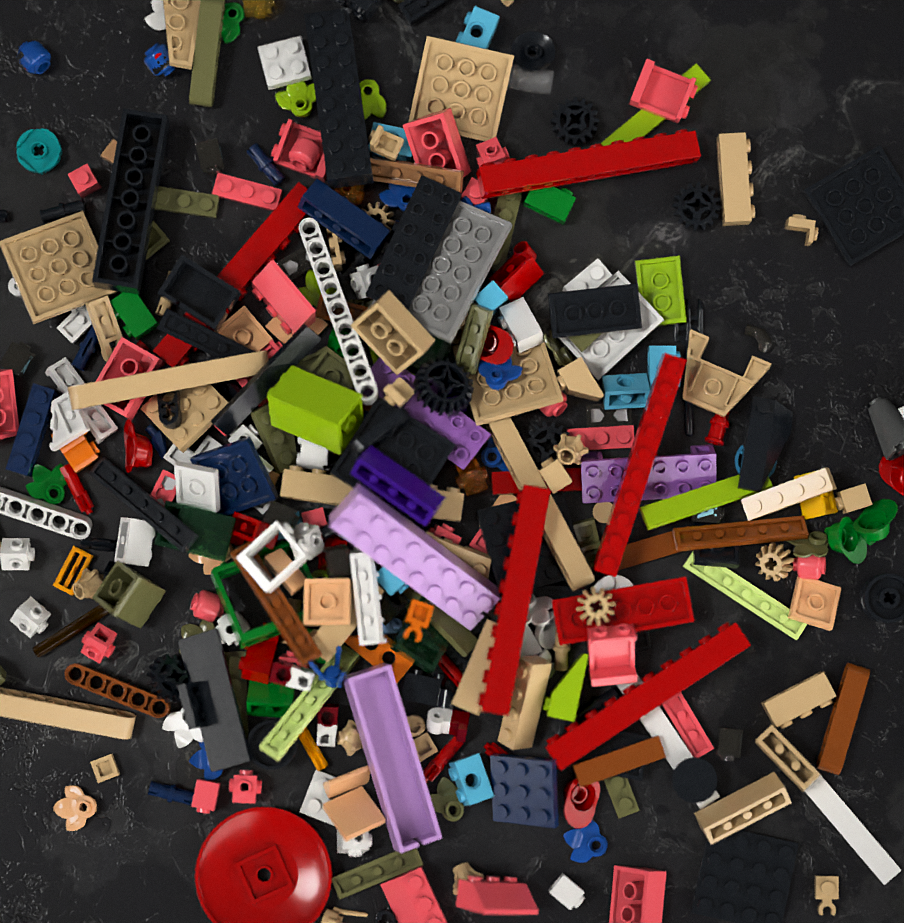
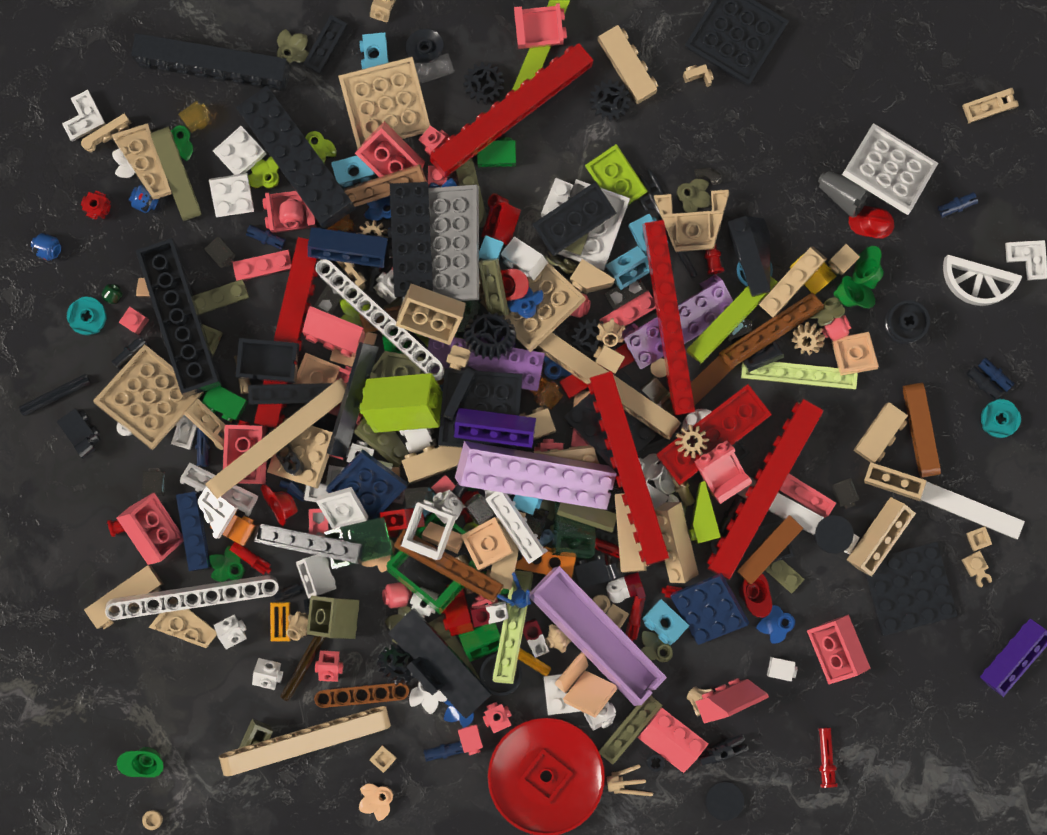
camera: 20 degrees left, 0 degrees up
(76, 141) = (111, 293): none -> dark green piece
(111, 47) = (100, 210): none -> red brick
(253, 102) = (231, 195): none -> white plate
(385, 143) = (349, 173): tan bracket -> none
(418, 617) = (561, 519): orange plate -> none
(735, 354) = (697, 195): none -> olive plate
(844, 863) = (979, 538): none -> tan tile

